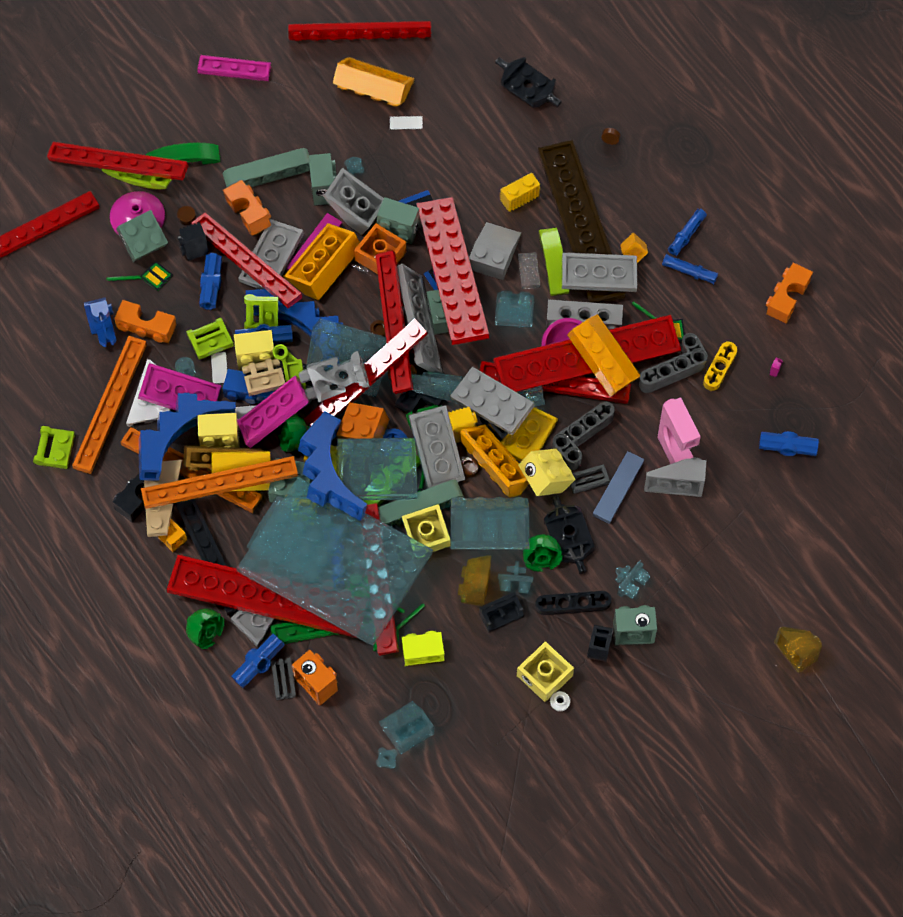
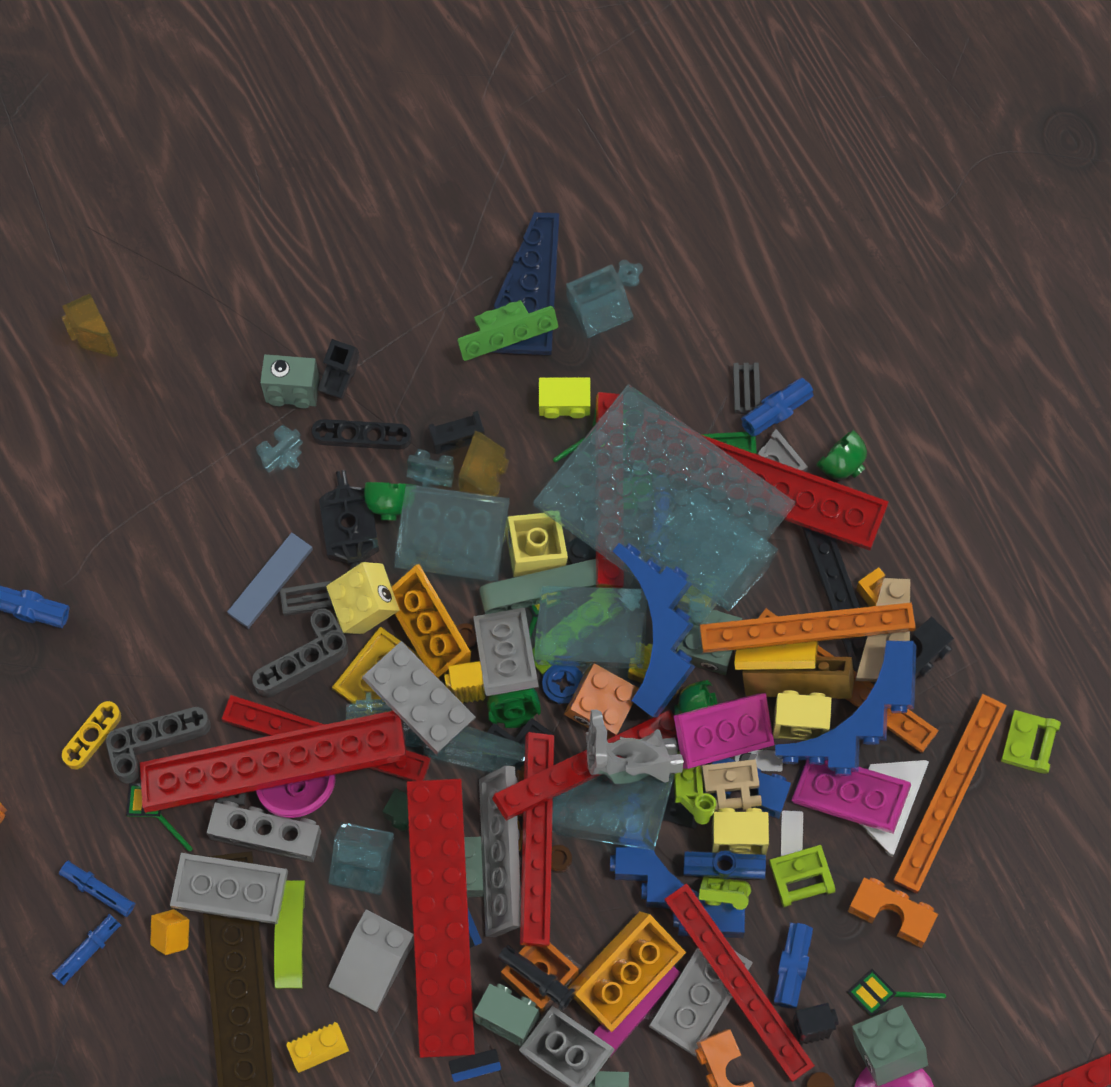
camera: 170 degrees left, 5 degrees up
(99, 320) = (959, 926): blue piece -> none
(183, 364) = (843, 827): clear light blue wheel -> none
(315, 677) = (707, 369): orange brick -> none
(373, 232) = (547, 984): none -> black pin
(464, 722) = (533, 279): none -> dark blue wing
(477, 692) = (506, 327): none -> bright green bracket
(492, 345) = (397, 810): none -> clear green brick
(529, 270) = (328, 922): clear plate -> none
(545, 671) = (415, 342): light yellow brick -> none
(560, 706) = (403, 319): white plate -> none
(603, 355) = (249, 748): light orange slope -> none
(677, 431) = (175, 606): bright pink arch -> none
(678, 478) = (187, 568): light grey slope -> none
(776, 367) = (17, 719): dark pink tile -> none

